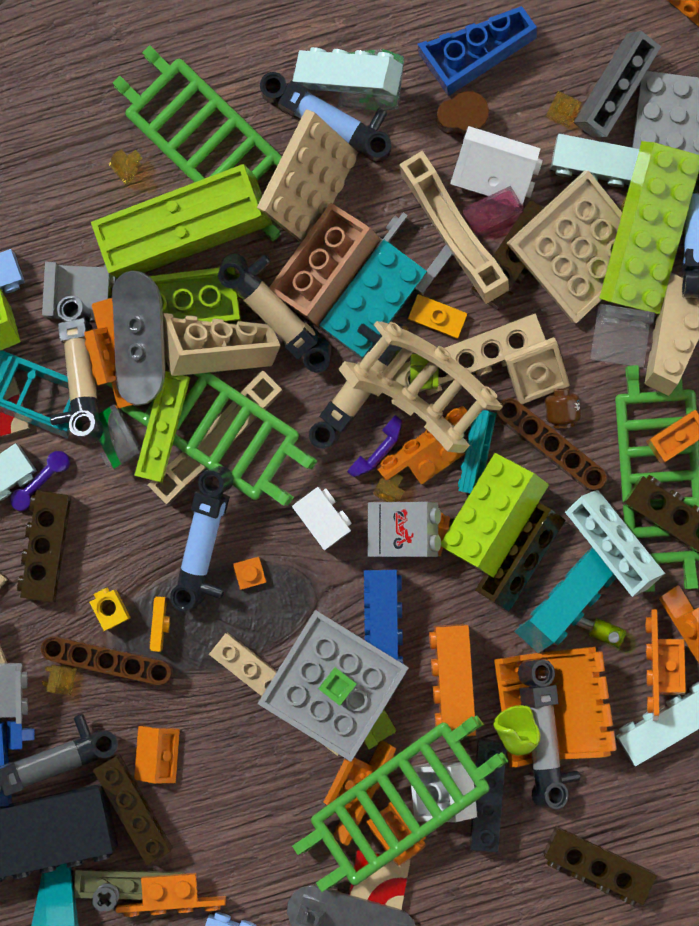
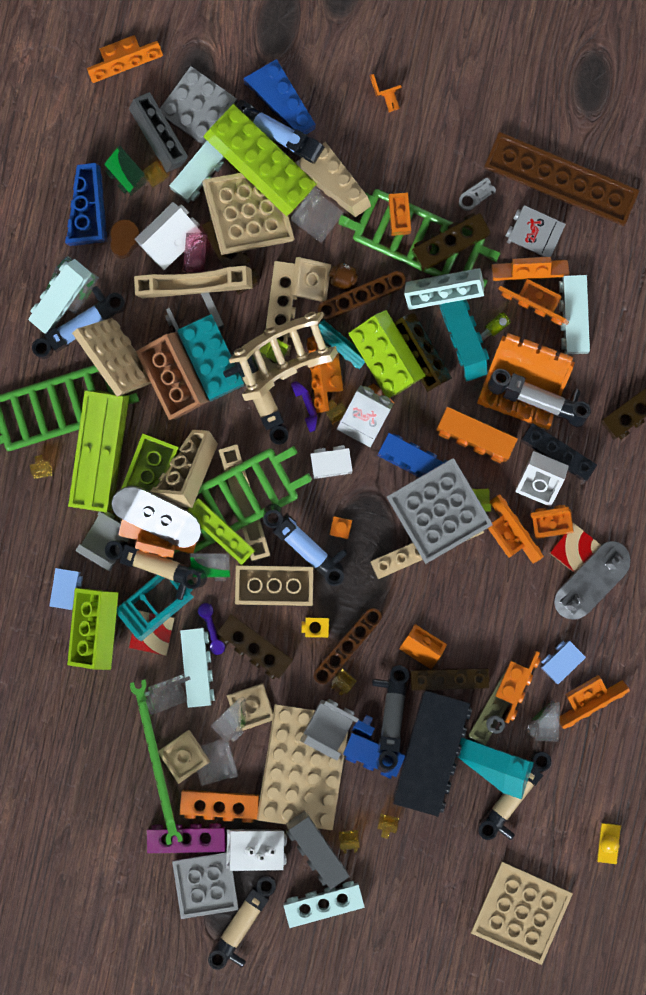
camera: 65 degrees left, 0 degrees up
(132, 529) = (274, 585): none -> tan brick
(160, 623) = (342, 600): light orange plate -> none
(299, 336) = (208, 416): piece -> none
(337, 686) = (441, 507): bright green plate -> none
(380, 776) = (558, 506): bright green bar -> none
(437, 316) = (242, 323): light orange plate -> none
(517, 730) = (528, 411): lime hair -> none
(546, 70) = (125, 172): none -> clear green slope

